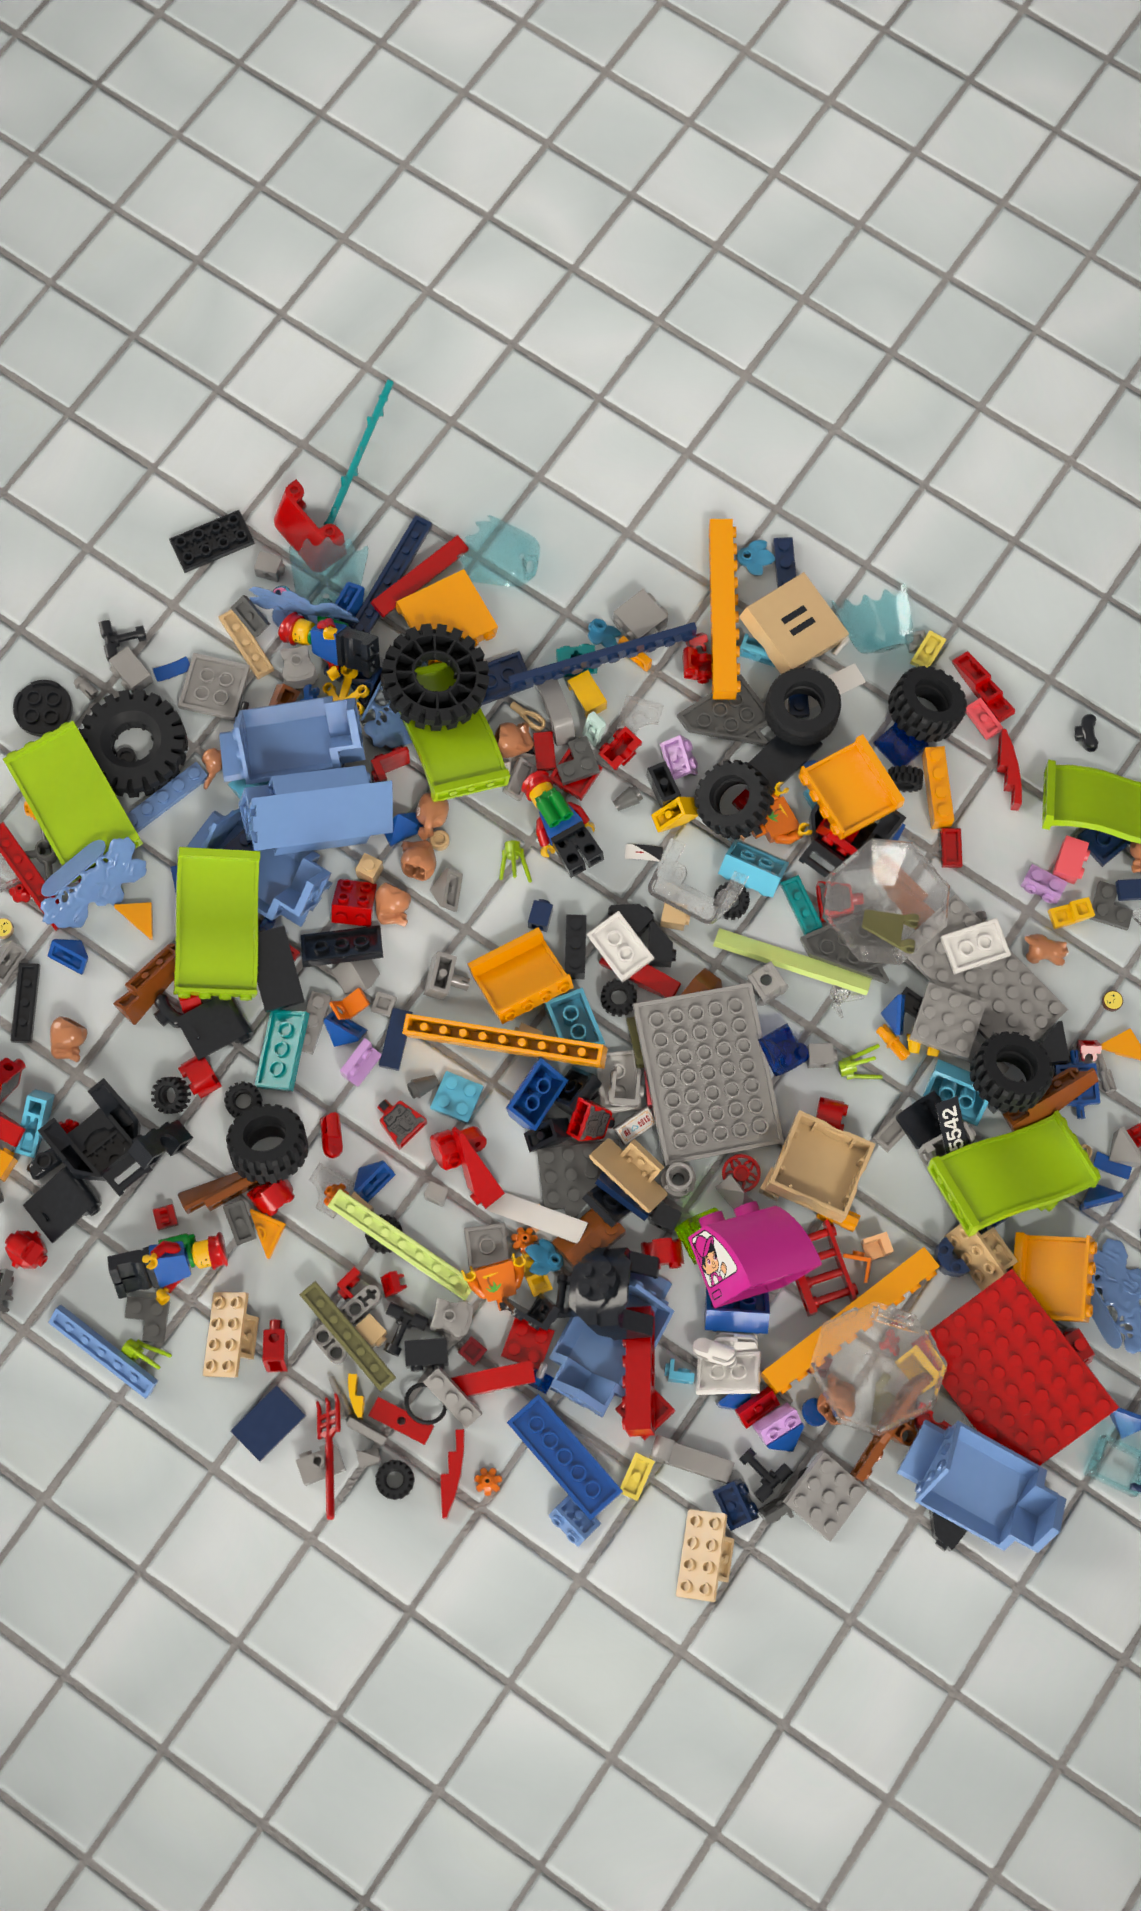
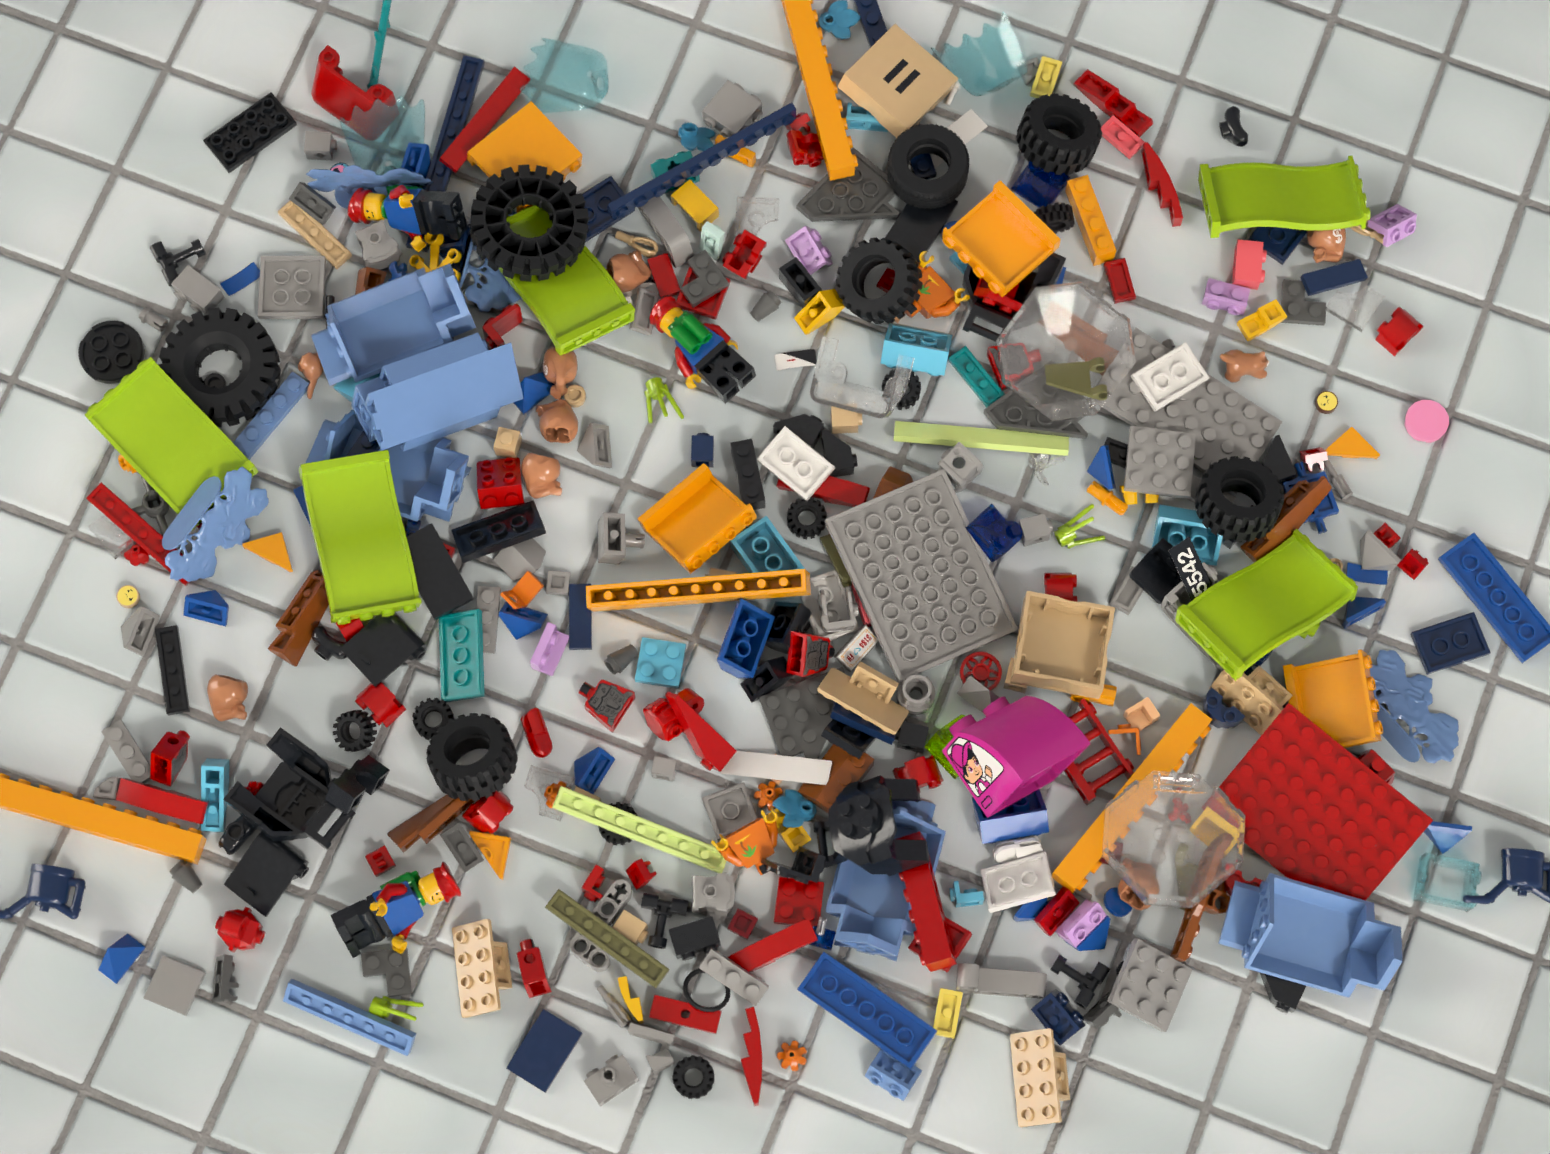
camera: 10 degrees left, 0 degrees up
(329, 1448) = (612, 1046): red piece -> none
(715, 1352) = (998, 864): white arm -> none

